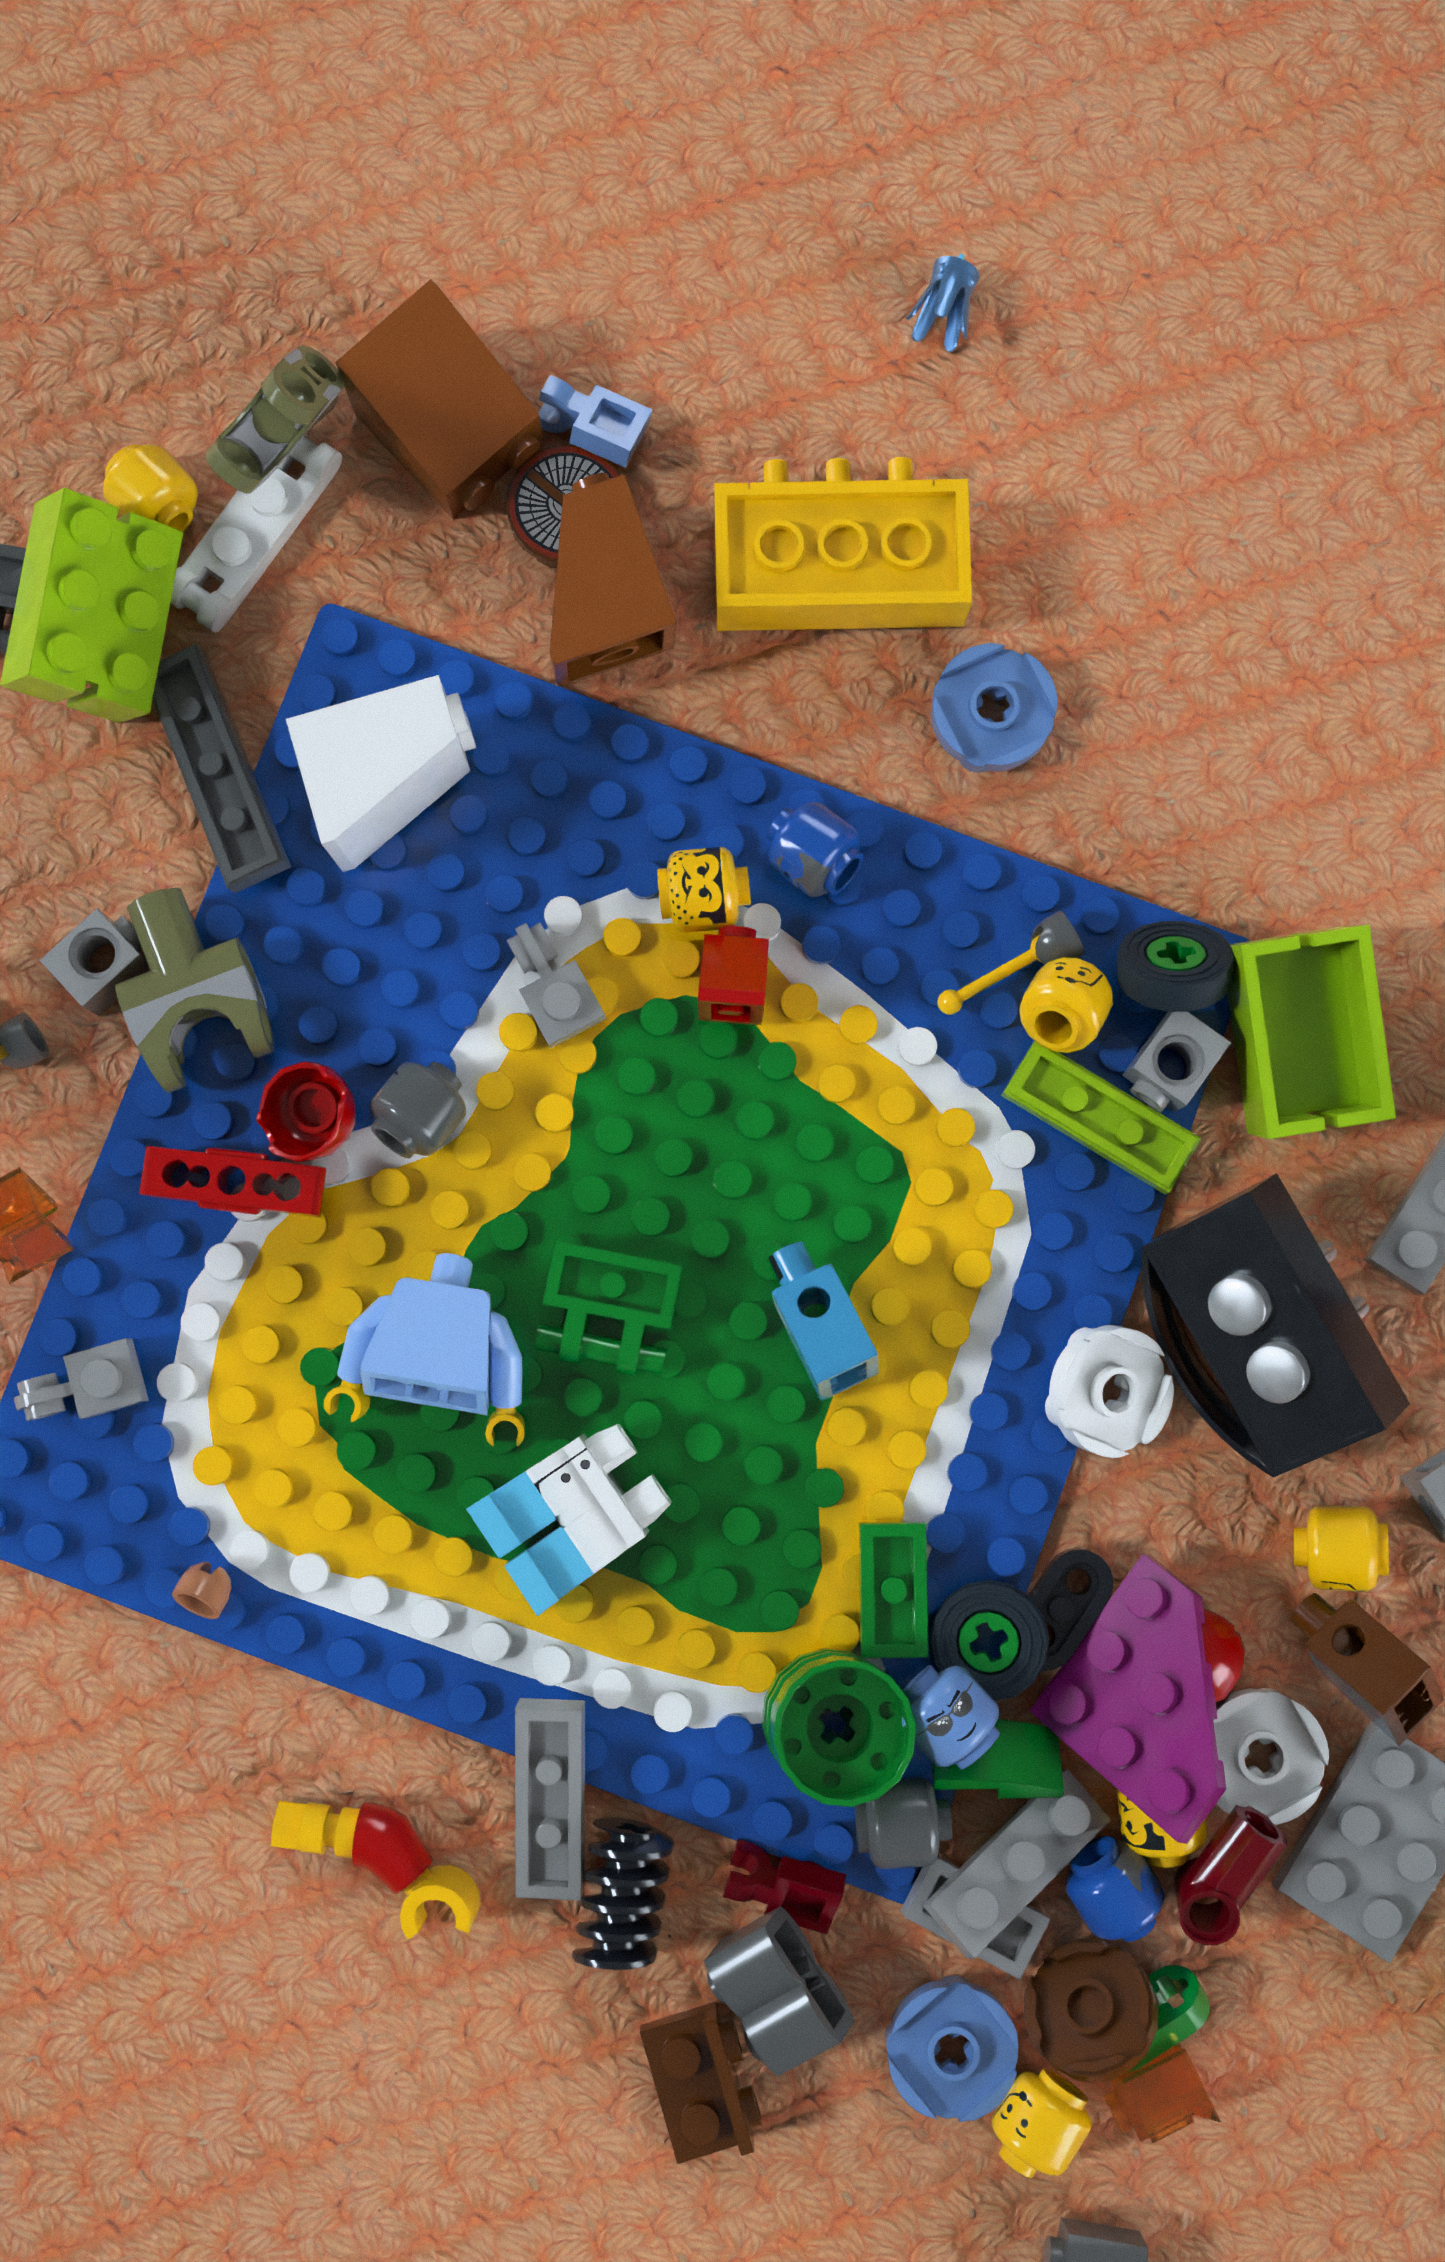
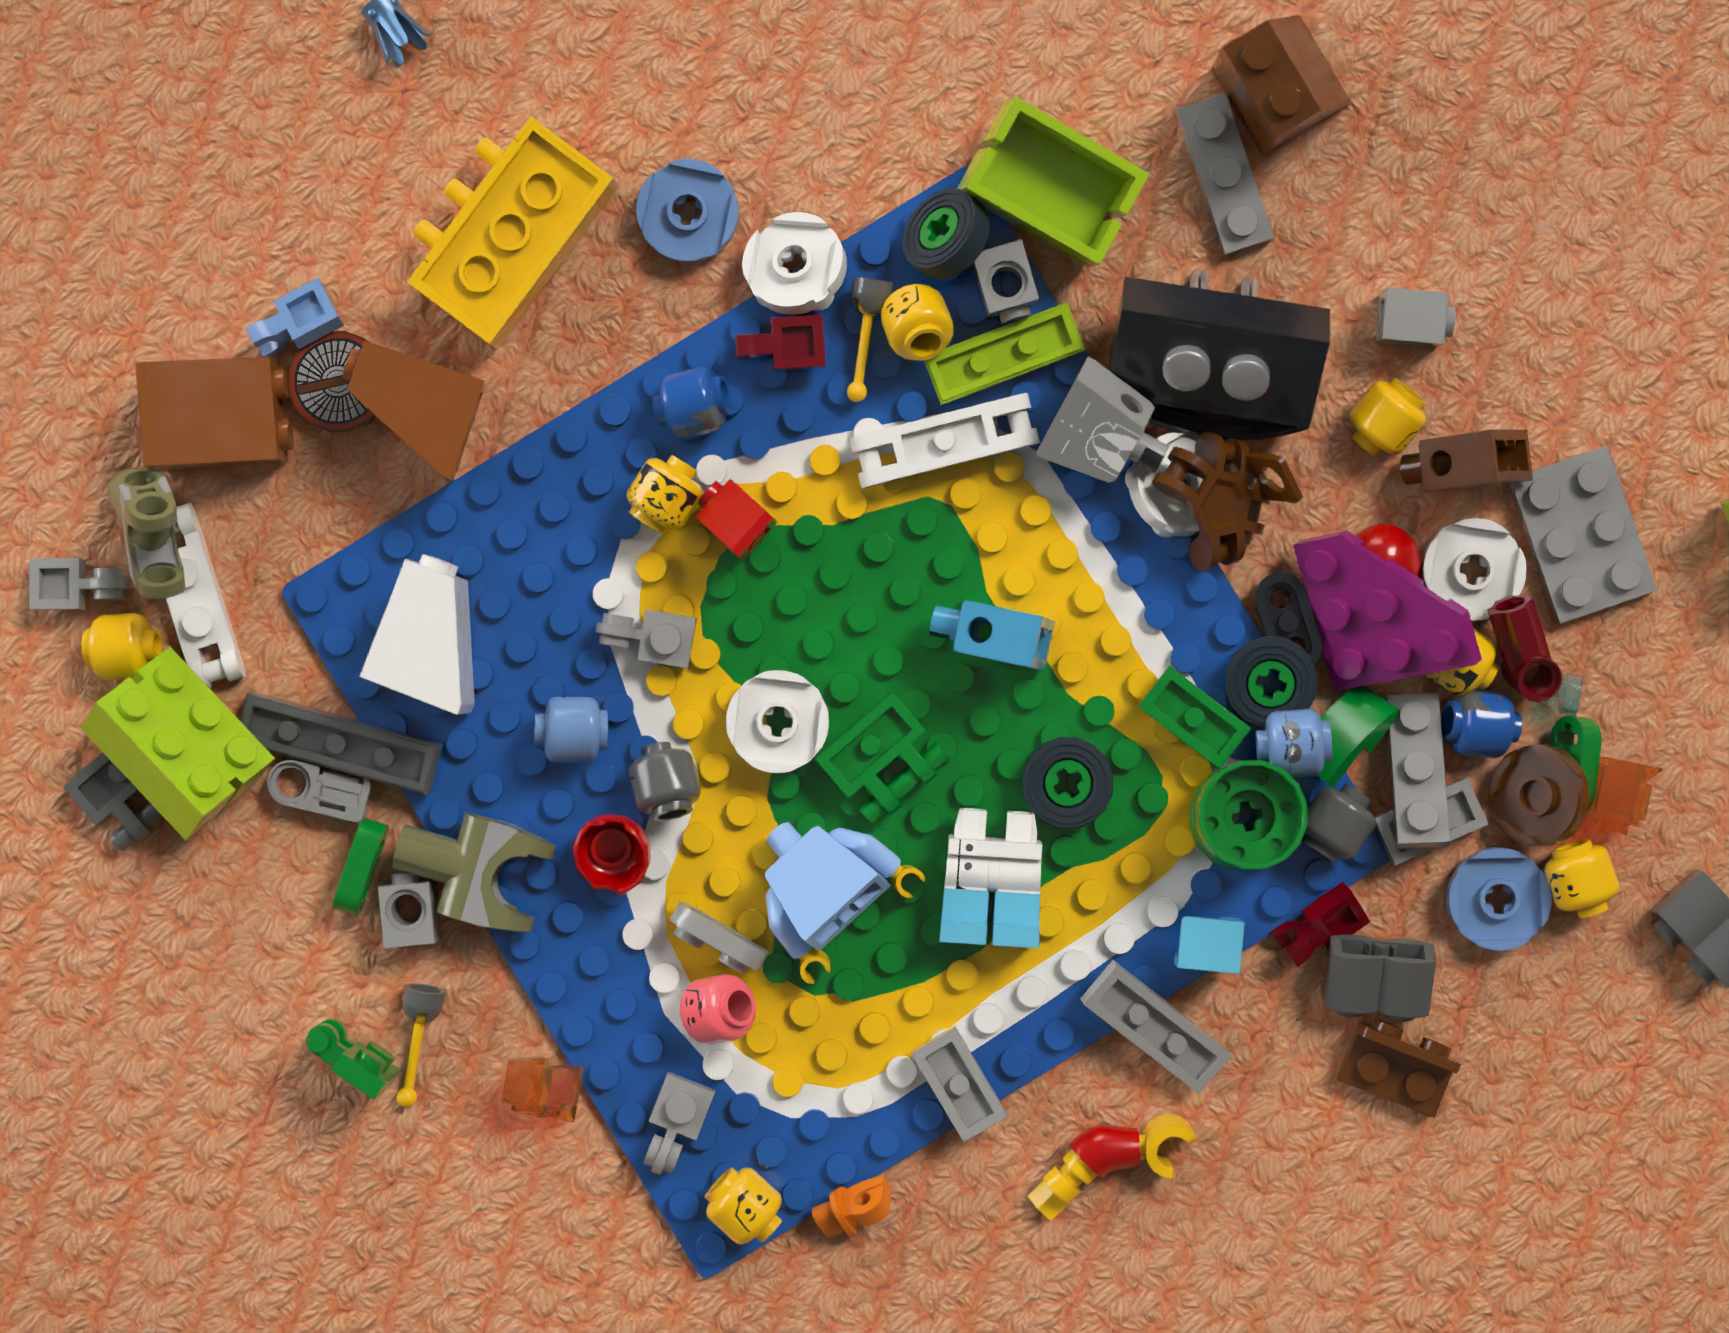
camera: 45 degrees left, 5 degrees up
(46, 1519) = (744, 1205): none -> yellow head
(108, 880) = (360, 866): none -> green beam
(134, 1632) = (854, 1207): none -> orange piece
(157, 791) = (324, 792): none -> light grey piece
(171, 394) = (63, 584): none -> light grey plate
(202, 1591) = (863, 1144): nougat hinge -> none
(221, 1163) = (602, 932): red piece -> none
(227, 1337) = (717, 1009): none -> coral head
(305, 1309) = (698, 927): none -> light grey plate
(338, 1642) = (959, 1084): none -> light grey plate
(399, 977) = (571, 729): none -> medium blue head
(529, 1165) = (759, 698): none -> white plate
(626, 1895) = (1249, 1026): black piece -> none
(677, 1791) = (1210, 944): none -> medium azure panel
(743, 1543) = (1073, 756): none -> black bush
(948, 901) = (793, 343): none -> dark red plate
(971, 1124) = (944, 440): none -> white plate
(1021, 877) = (808, 288): none -> white plate
(1110, 1267) = (1102, 427): none -> light grey torso
(1140, 1448) = (1226, 500): none -> reddish brown piece
(1212, 1960) = (1568, 696): none -> clear light blue hinge

